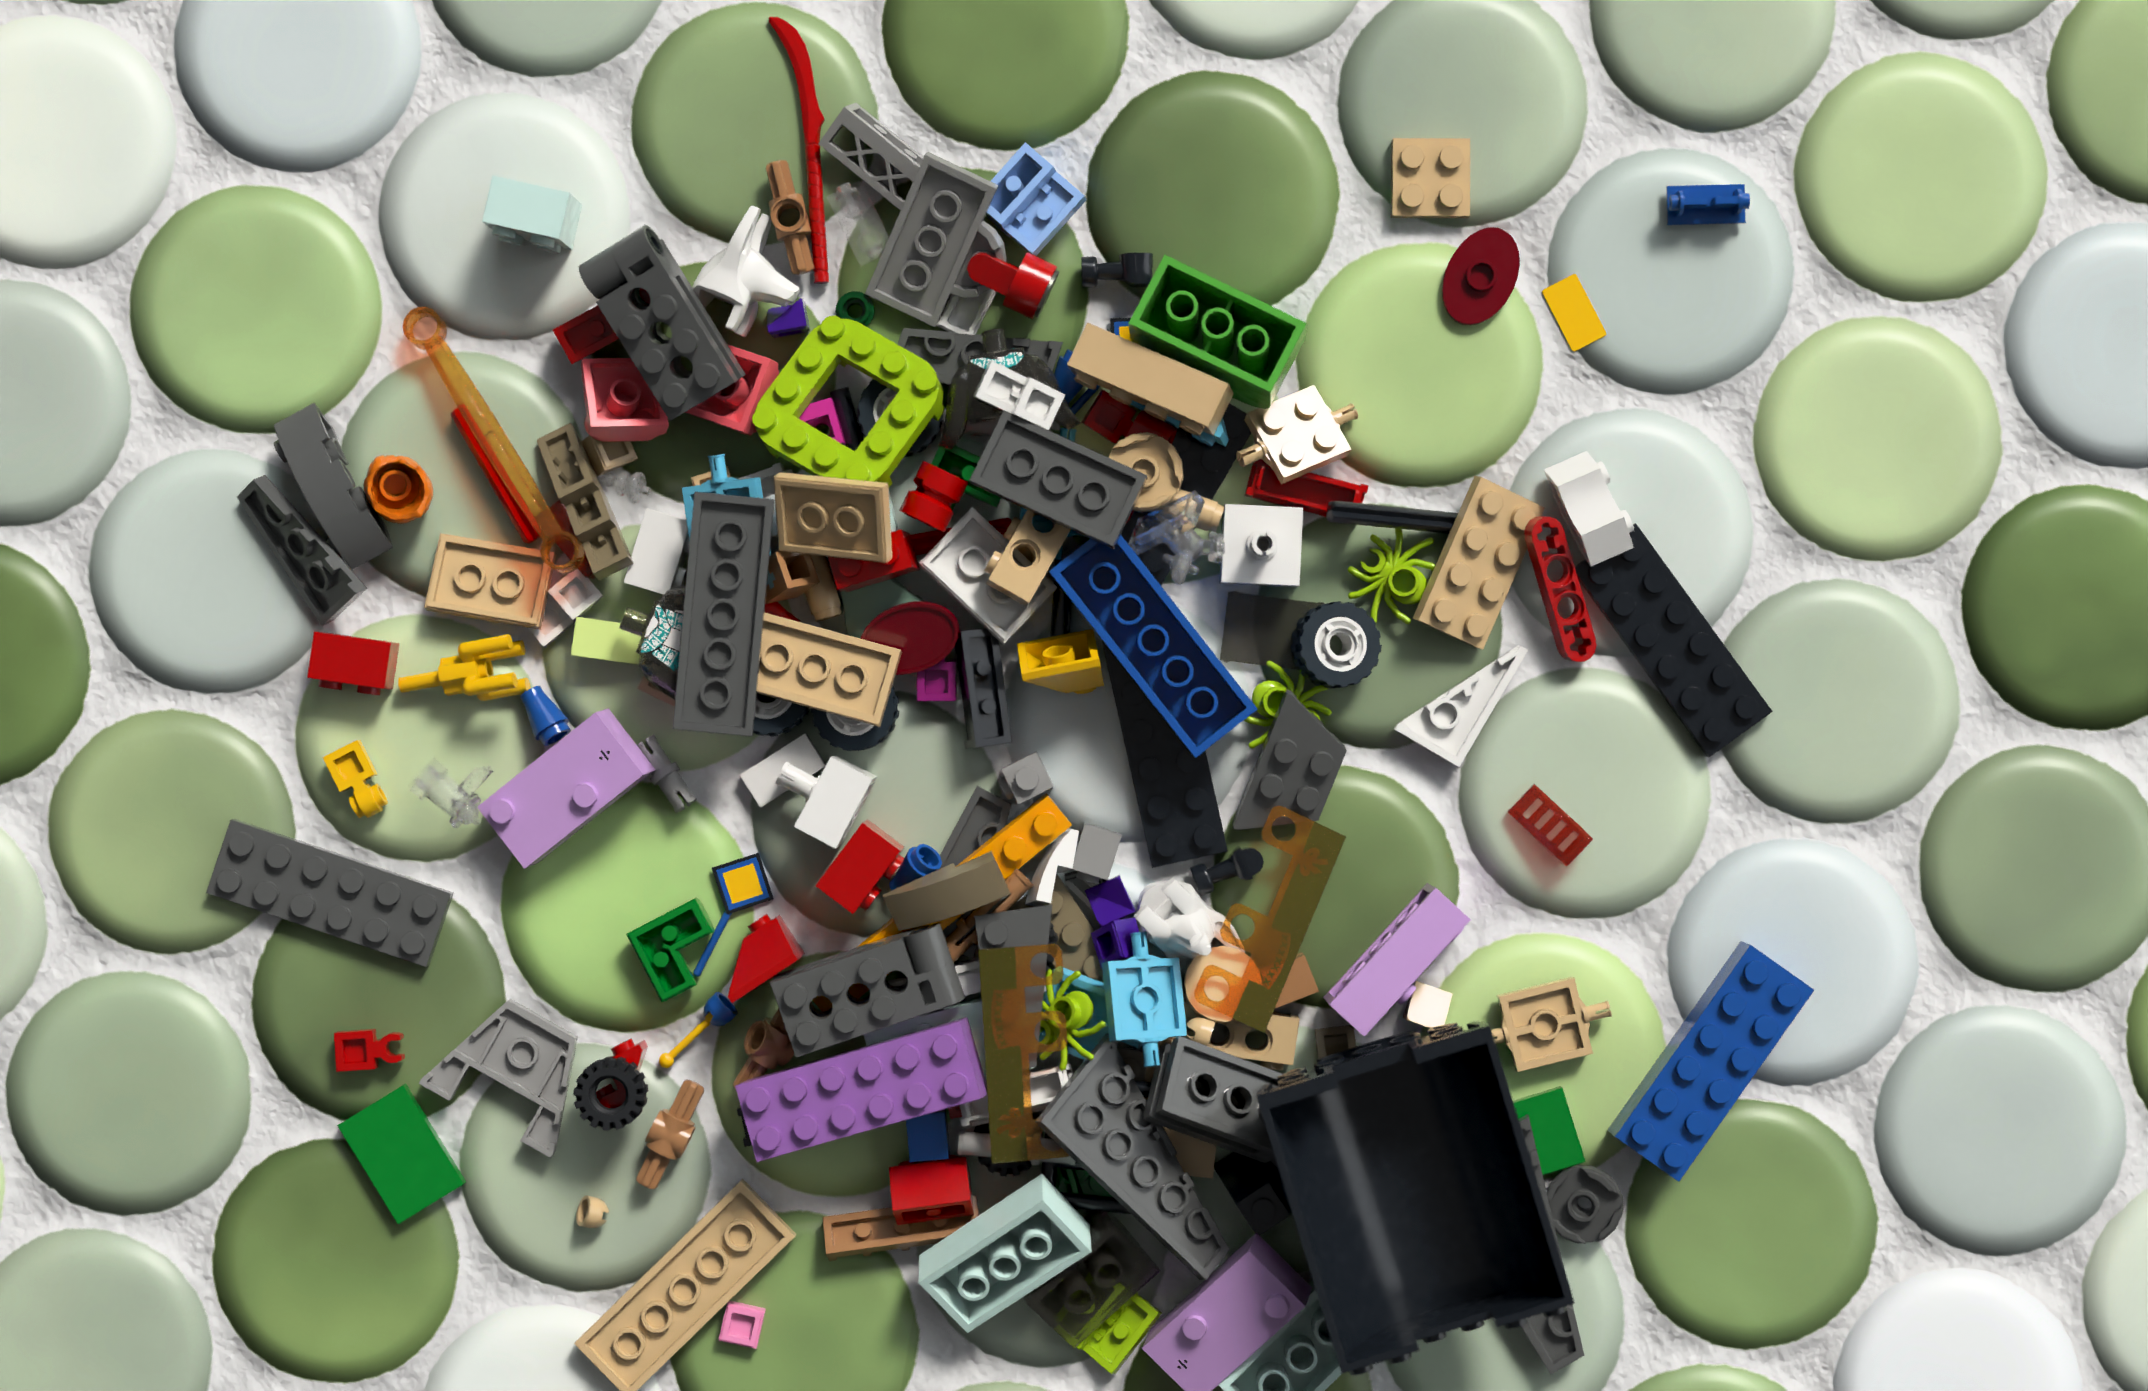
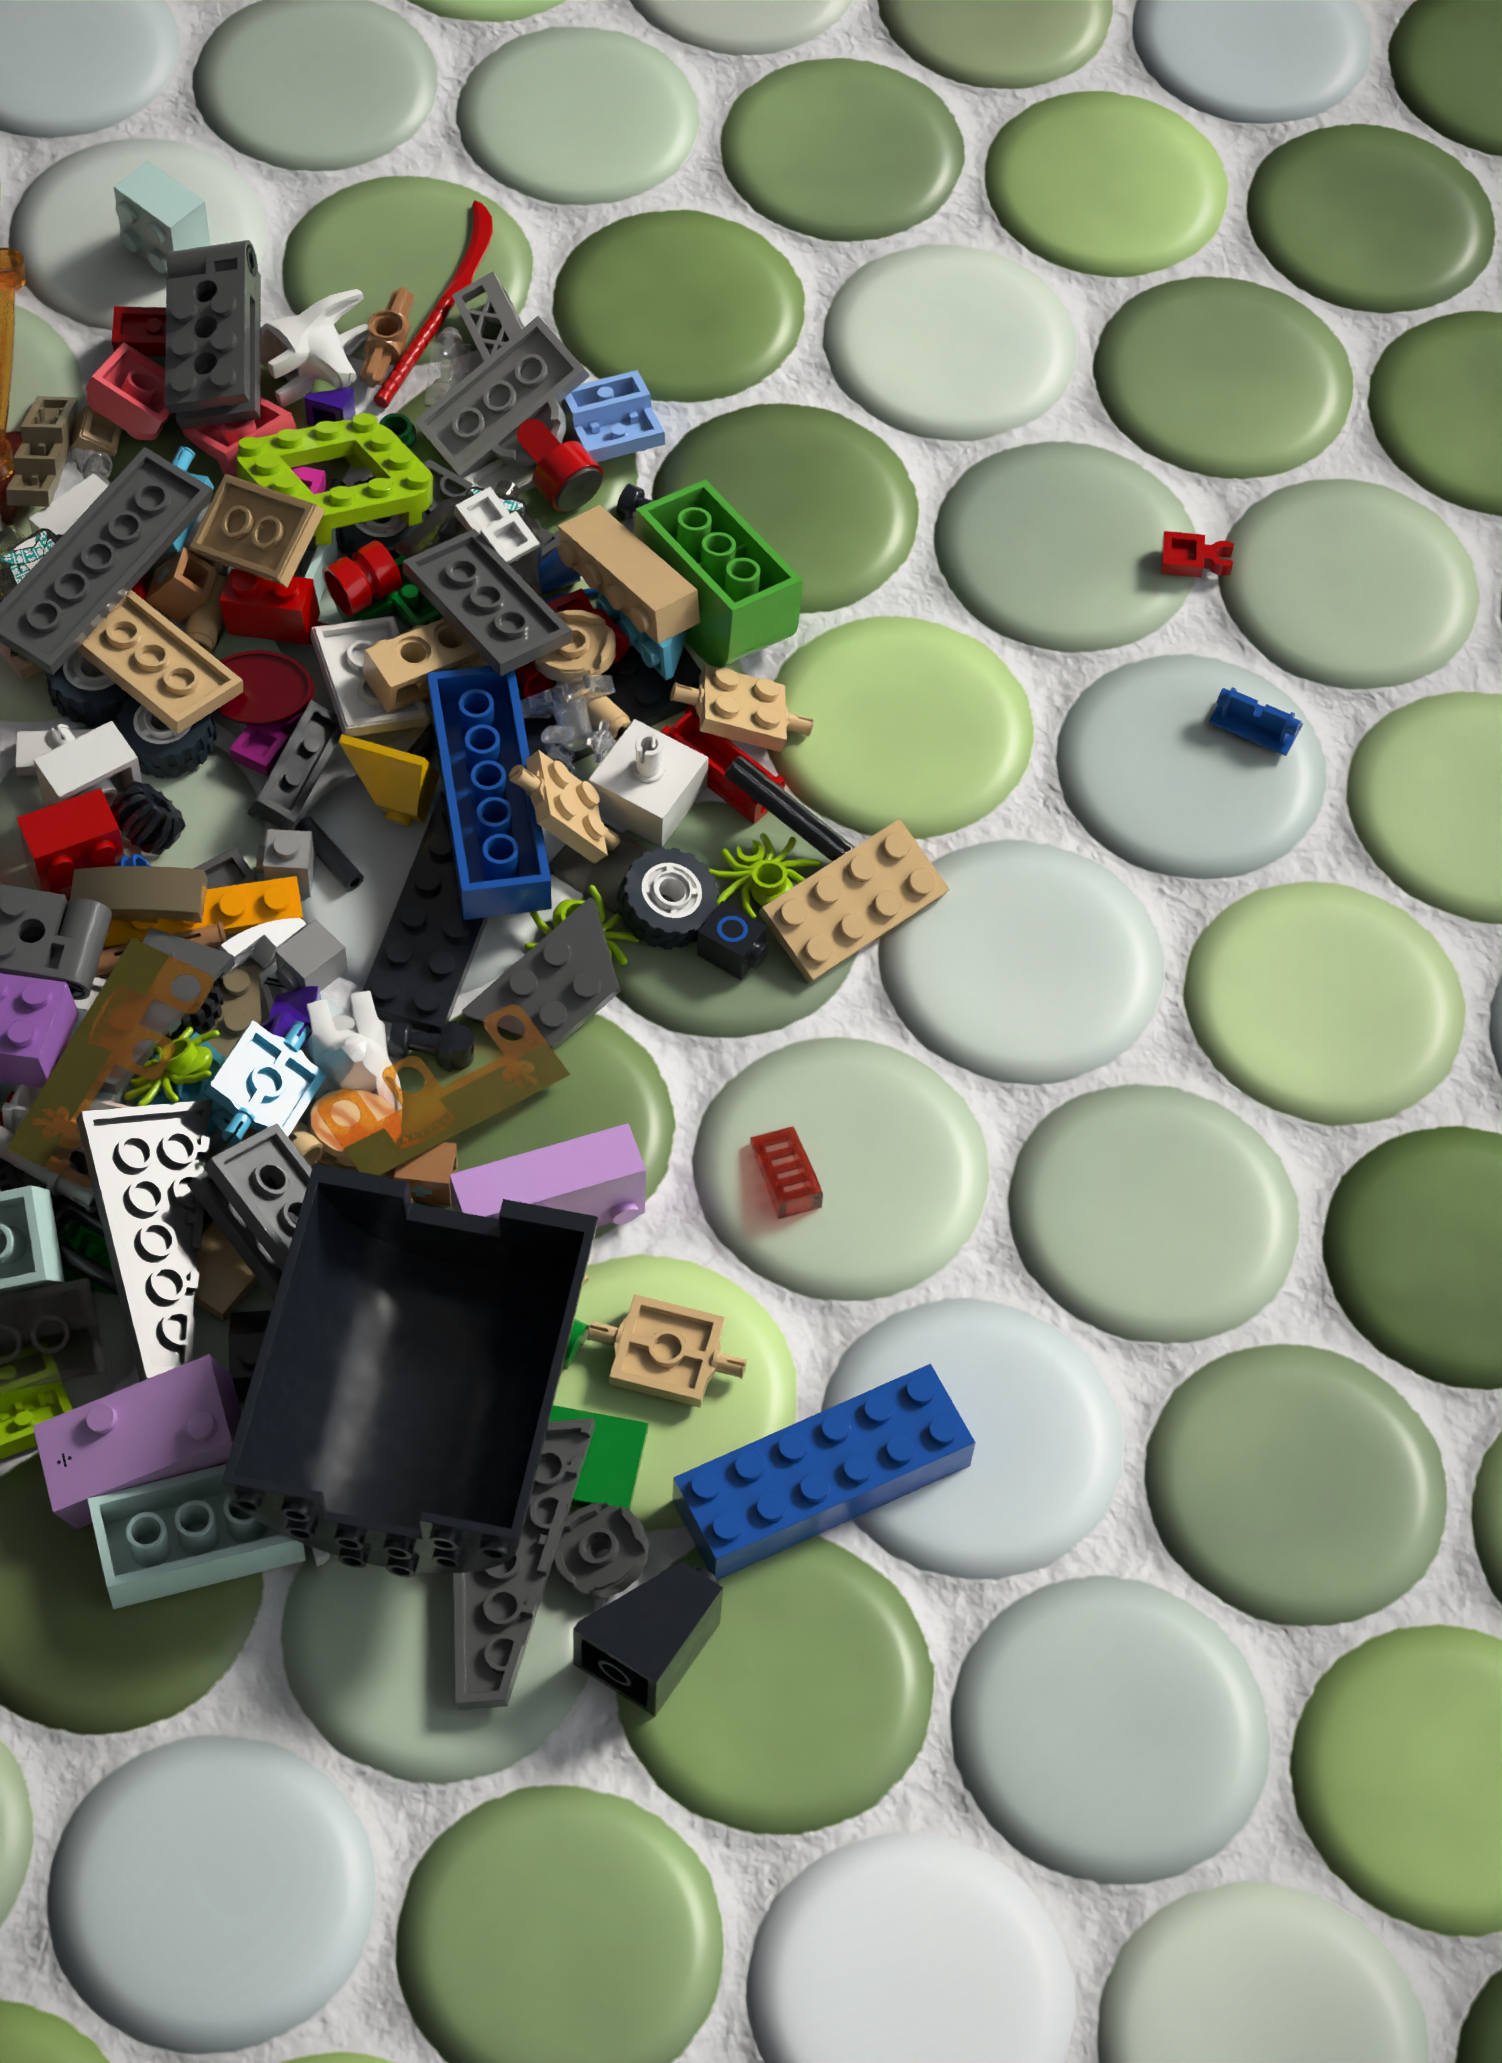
camera: 20 degrees right, 30 degrees down
(897, 805) = (147, 818): none -> black gear
(1047, 744) = (331, 855): none -> black piece
(1225, 628) = (565, 806): none -> tan plate
(1406, 652) = (732, 941): none -> black brick
(1430, 178) = (999, 582): tan plate -> none
(1456, 717) = (755, 1024): white wing -> none
(1480, 276) = (1001, 681): dark red piece -> none
(1566, 586) = (927, 961): red beam -> none
(1573, 64) = (1188, 555): none -> red plate
(1574, 312) = (1076, 753): yellow sticker -> none
(1589, 508) = (994, 906): white brick -> none
(1663, 1258) = (650, 1635): none -> black slope
(1674, 644) = (1012, 1071): black plate -> none

